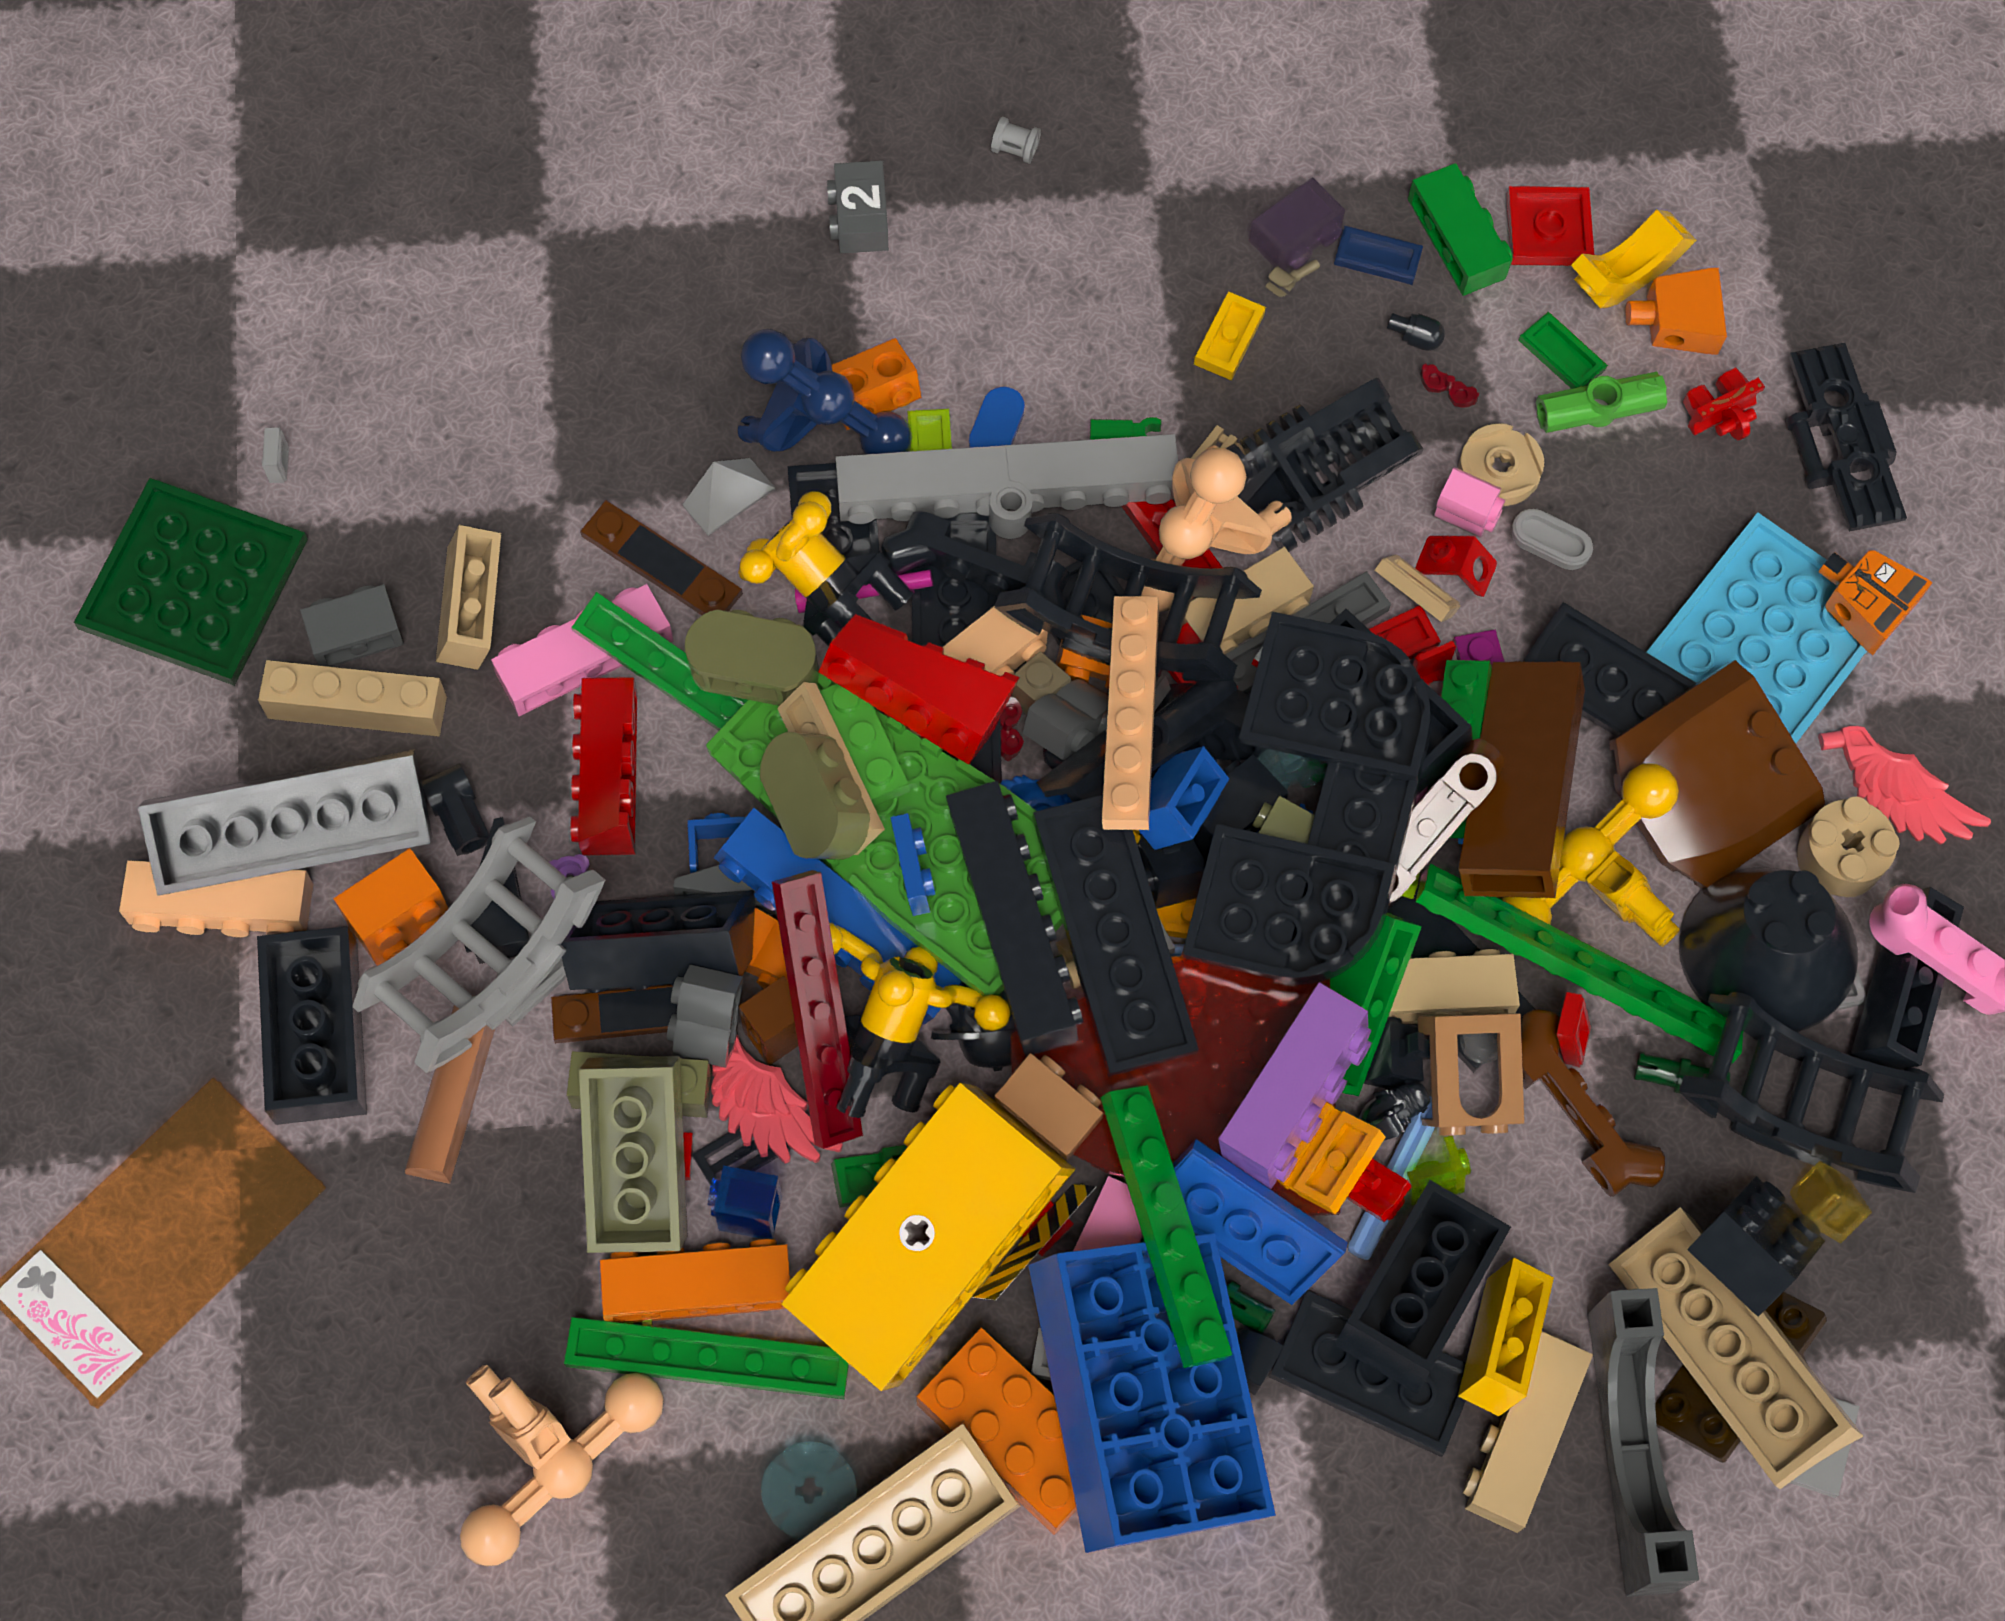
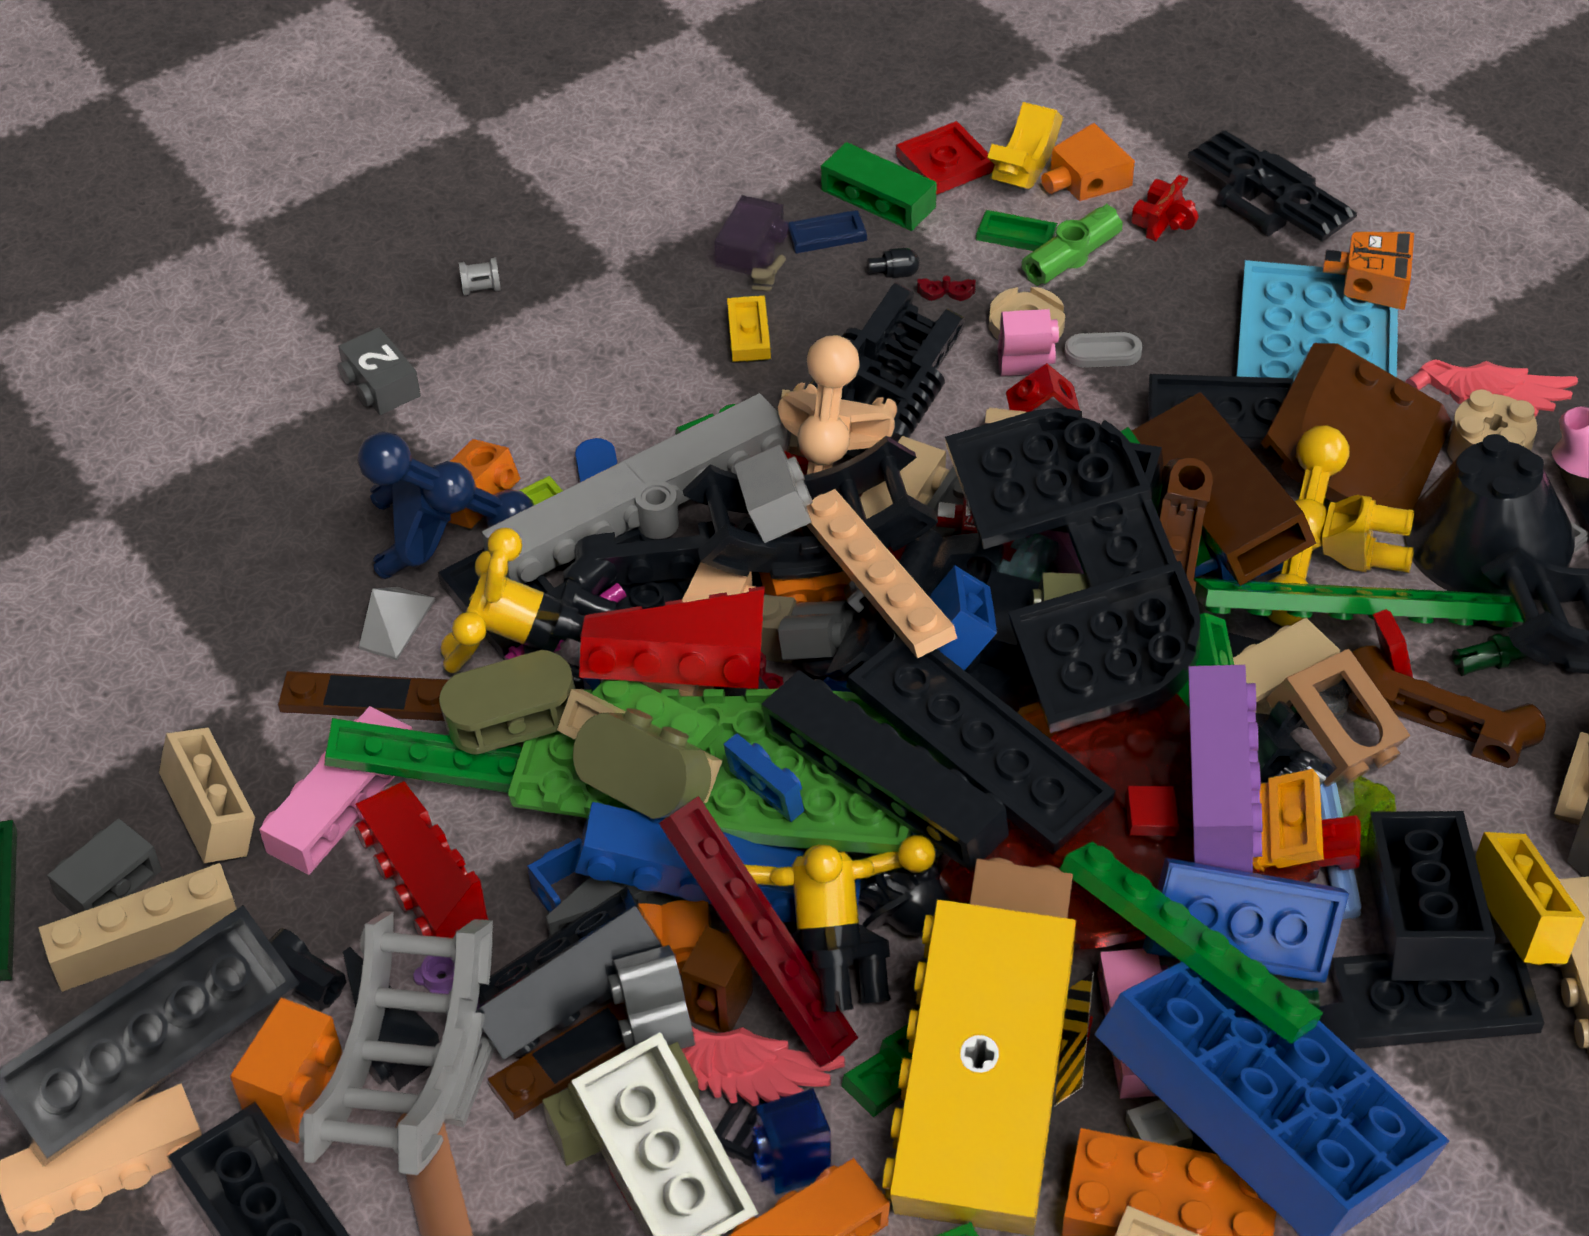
camera: 25 degrees left, 20 degrees down
(1094, 575) = (774, 492): none -> light grey brick
(1224, 1081) = (1151, 810): none -> red tile

